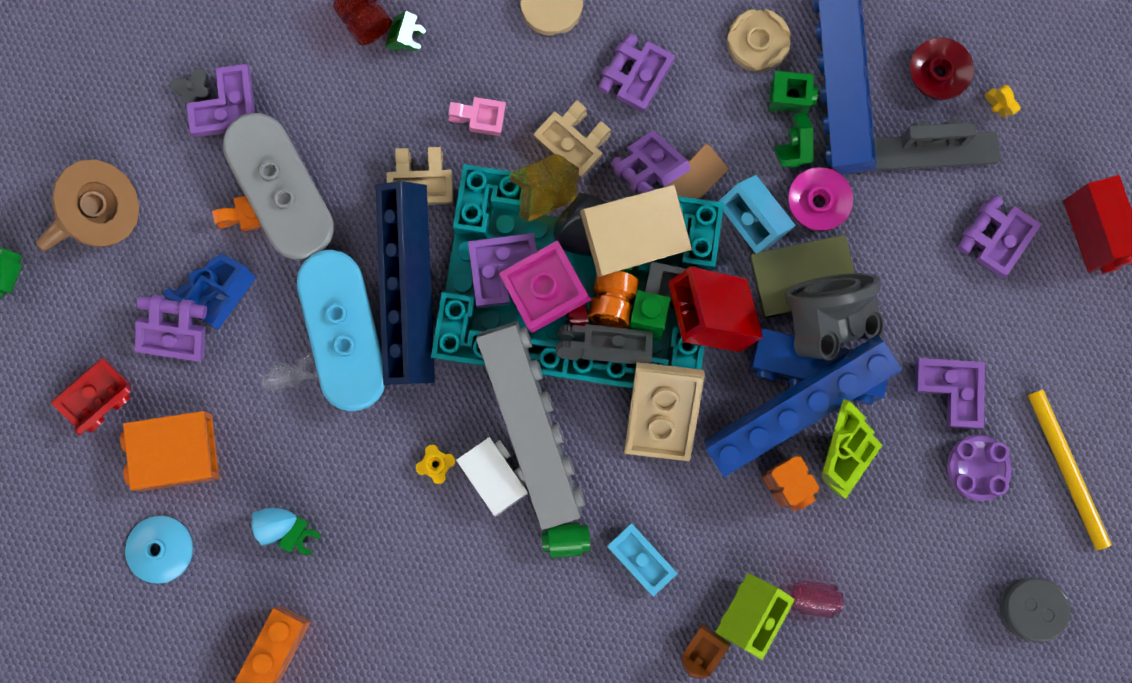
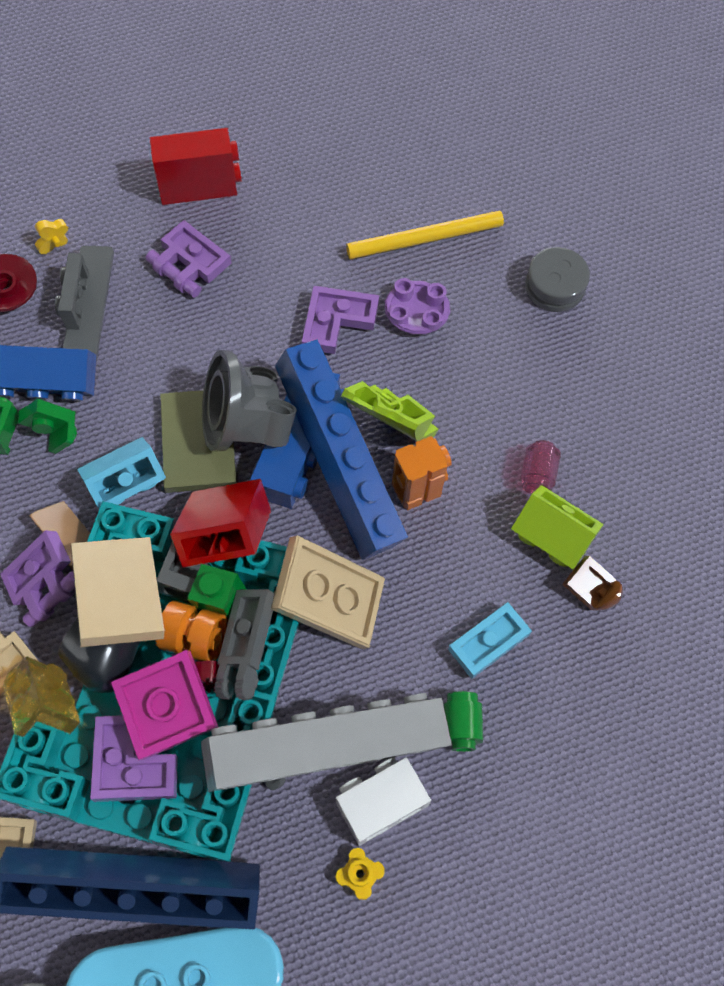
camera: 85 degrees left, 15 degrees down
(829, 187) = (113, 399): dark pink dish -> none

